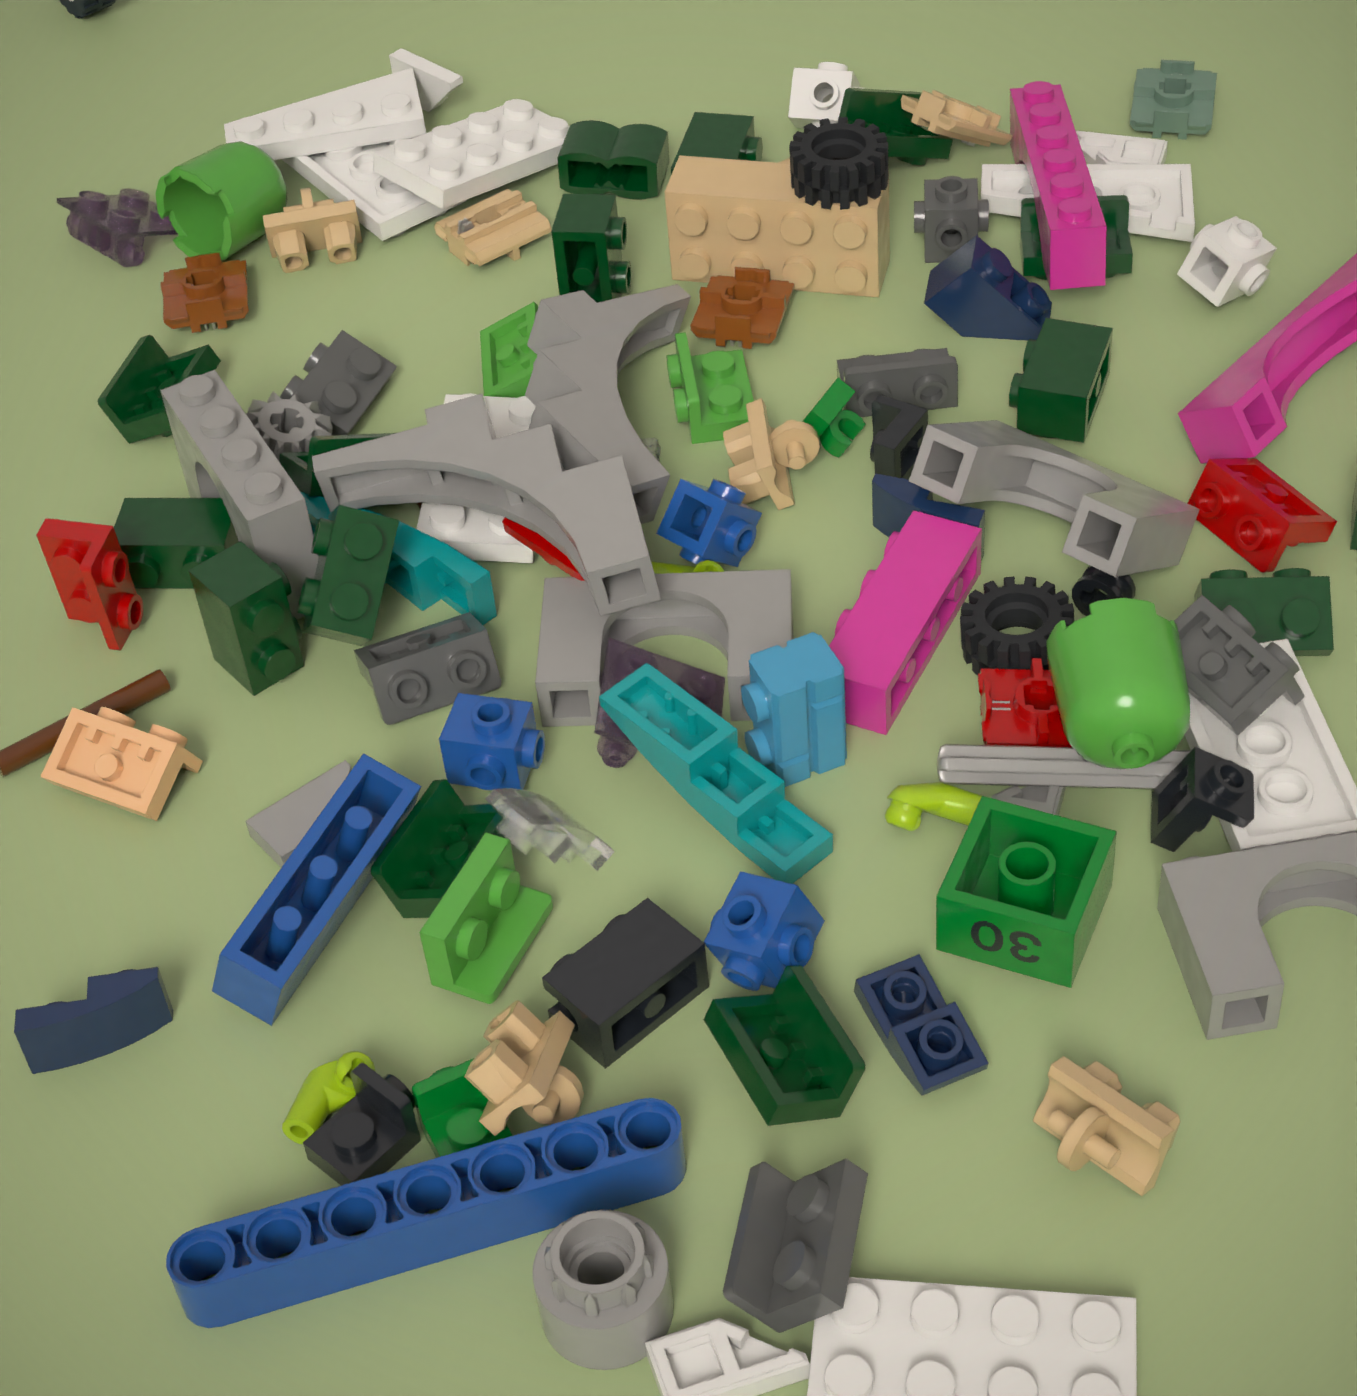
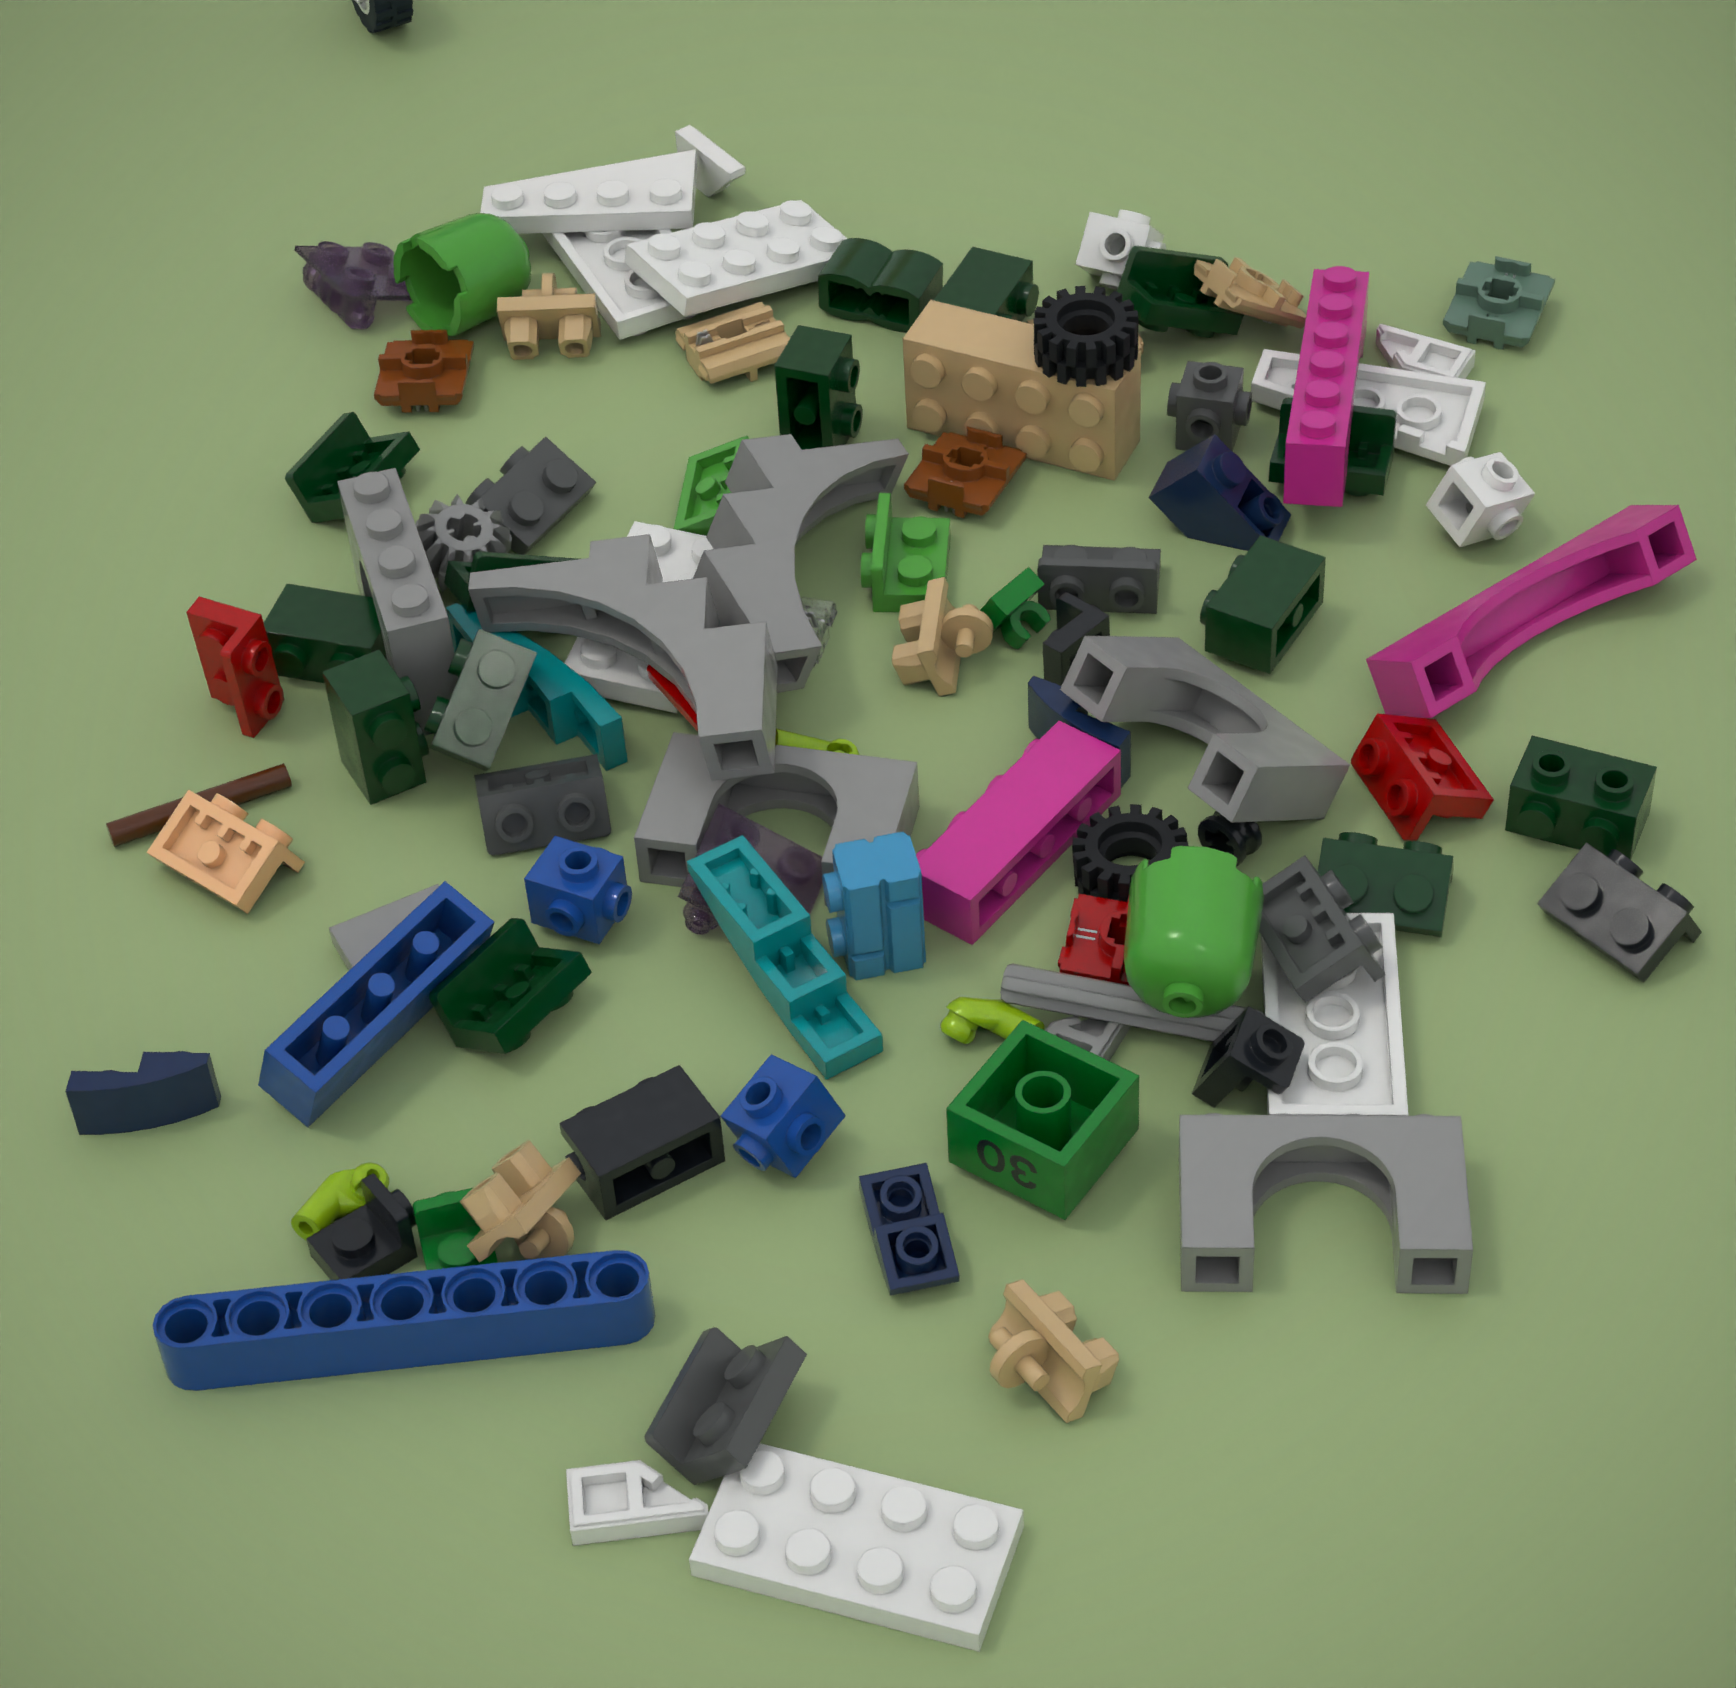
camera: 10 degrees right, 0 degrees up
(483, 924) = (522, 1063): bright green bracket -> none
(543, 824) = (606, 981): clear slope -> none
(603, 1289) = (540, 1414): light grey piece -> none
(710, 522) = (855, 700): blue brick -> none
(788, 1050) = (772, 1231): dark green bracket -> none

